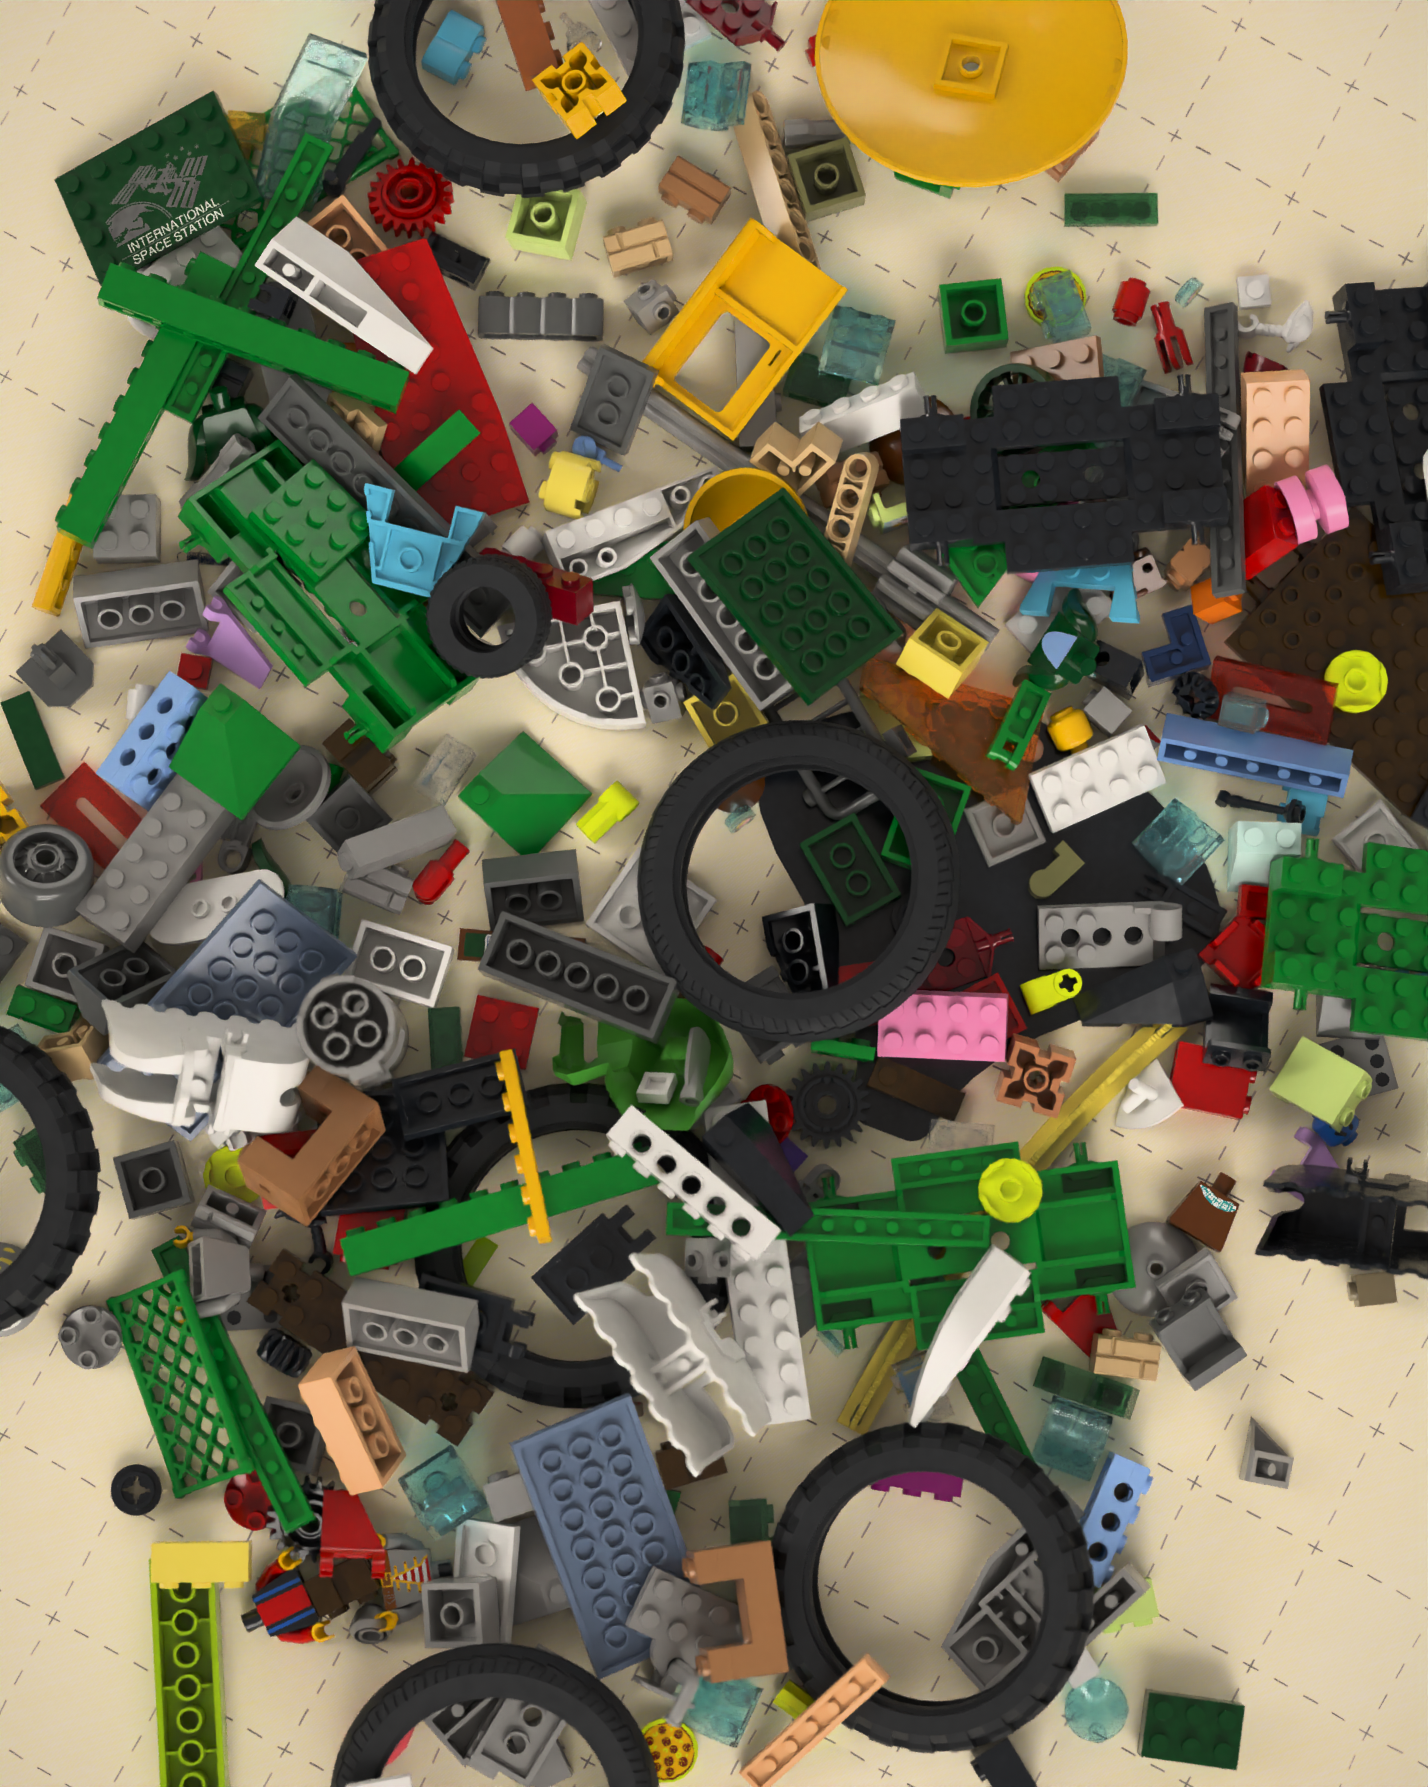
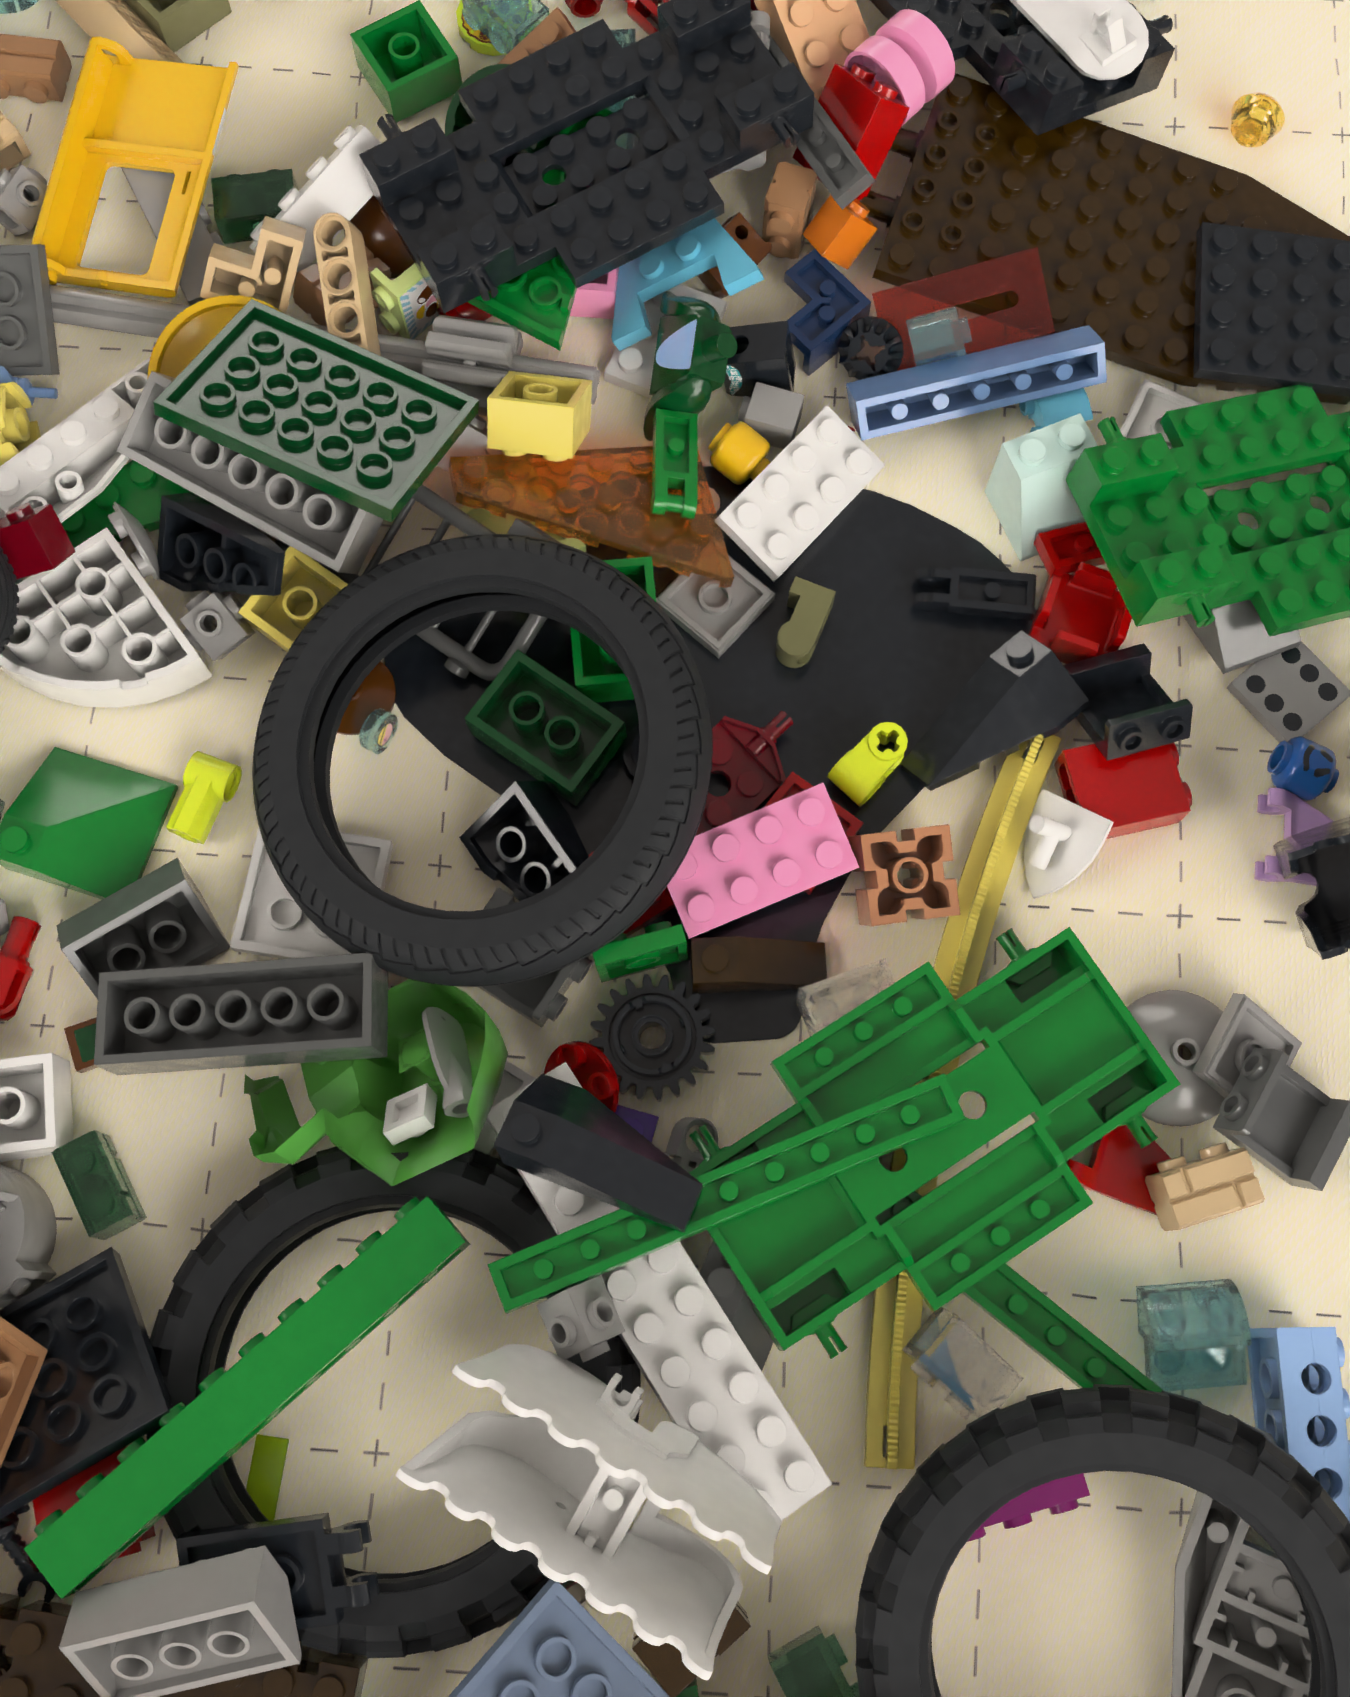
camera: 25 degrees left, 10 degrees down
(452, 1096) = (134, 1251): black plate -> none
(501, 1027) = (176, 1142): red plate -> none
(526, 1160) = (256, 1300): yellow plate -> none
(591, 1261) = (415, 1400): black tile -> none
(635, 1124) = (392, 1174): white brick -> none
(831, 1342) = (807, 1358): clear light blue tile -> none
(856, 345) = (280, 136): clear light blue brick -> none
(966, 1324) = (988, 1244): white wedge -> none
(1010, 1190) = (952, 1029): neon yellow tile -> none
(1086, 1388) = (1174, 1256): clear green slope -> none
(1157, 920) = (950, 622): light grey hinge -> none
(1177, 842) = (935, 521): clear light blue brick -> none
(1207, 1212) = (1207, 951): reddish brown torso -> none
(1292, 812) = (962, 455): black piece -> none
(1322, 1084) = (1266, 721): yellowish green panel -> none
(1360, 680) = (1061, 242): neon yellow tile -> none

